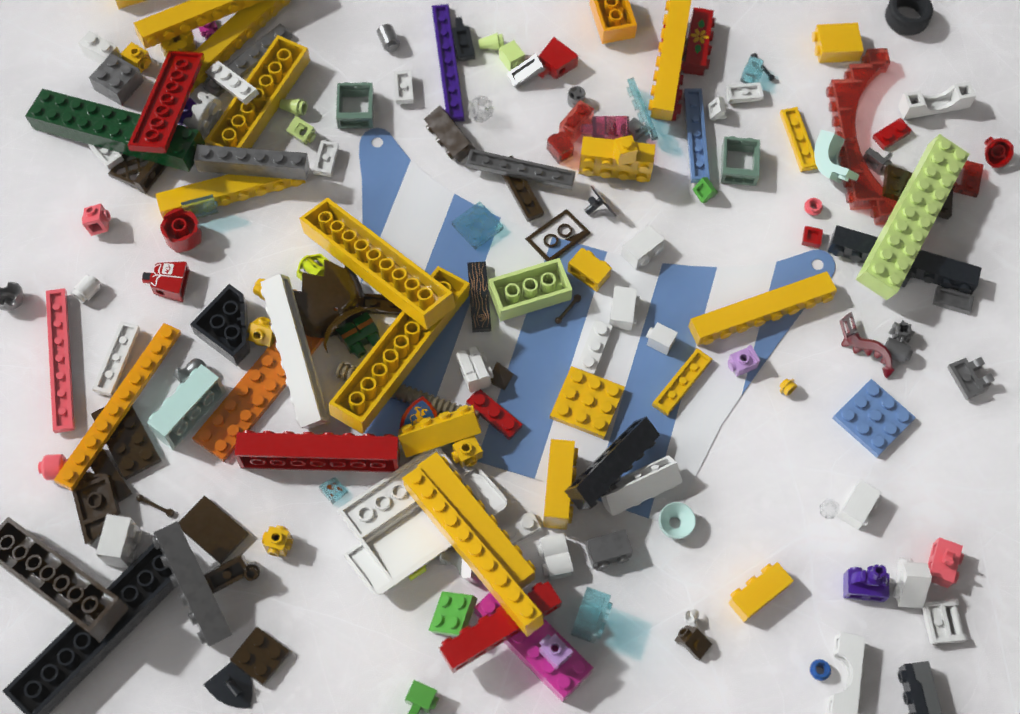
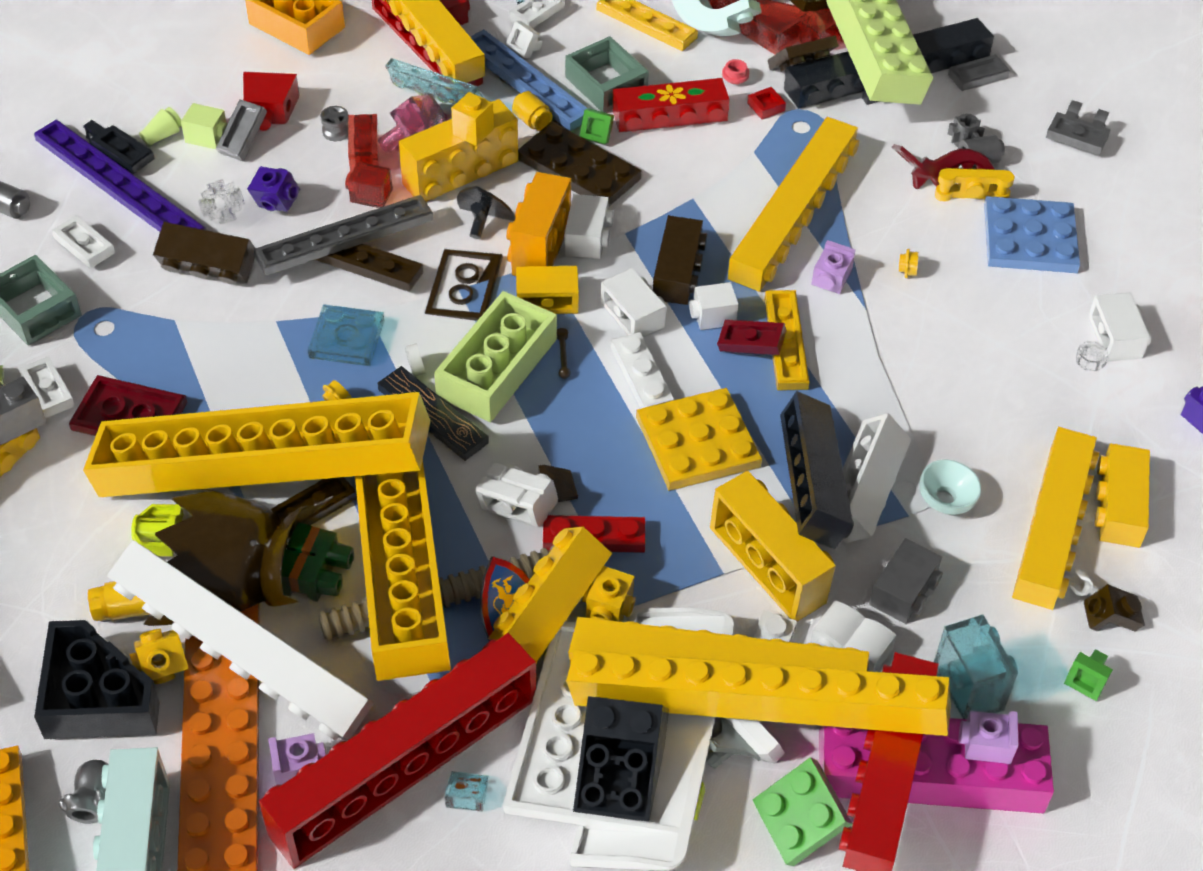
camera: 40 degrees left, 15 degrees down
(271, 417) = (292, 754): none -> lavender brick
(350, 195) = (119, 400): none -> dark red tile
(396, 529) = (620, 758): none -> black slope
(443, 255) = (335, 391): none -> yellow plate
(494, 263) = (415, 360): none -> white tile
(513, 121) = (273, 189): none -> dark purple brick
(614, 231) = (539, 222): none -> light orange brick
(646, 660) = (1089, 674): none -> bright green tile
(662, 369) = (752, 337): none -> dark red plate
(669, 299) = (679, 259): none -> dark brown brick
(676, 206) = (571, 156): none -> dark brown plate
(680, 157) = (532, 110): none -> yellow brick
(713, 575) = (1055, 519): none -> yellow brick
(756, 203) = (670, 104): none -> red brick
(849, 220) = (802, 53): none -> dark brown plate
(871, 367) = (973, 183): none -> yellow plate

